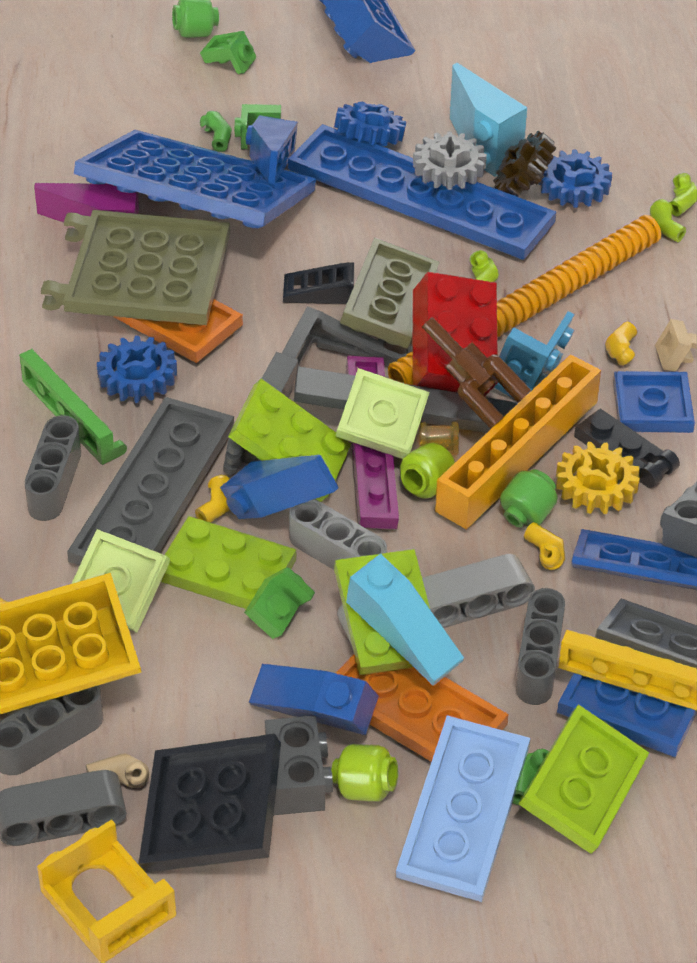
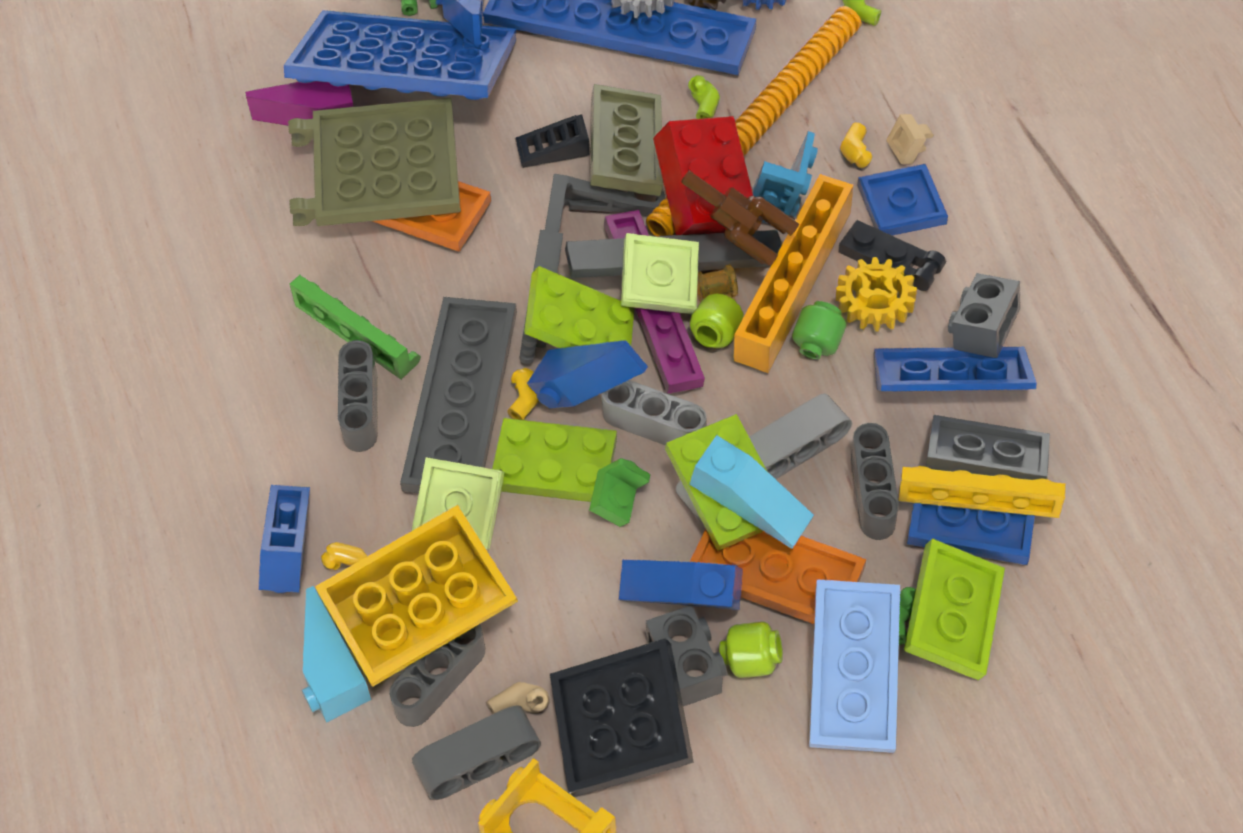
camera: 10 degrees left, 10 degrees up
(137, 369) = (405, 271): blue gear -> none
(551, 546) = (851, 373): yellow arm -> none

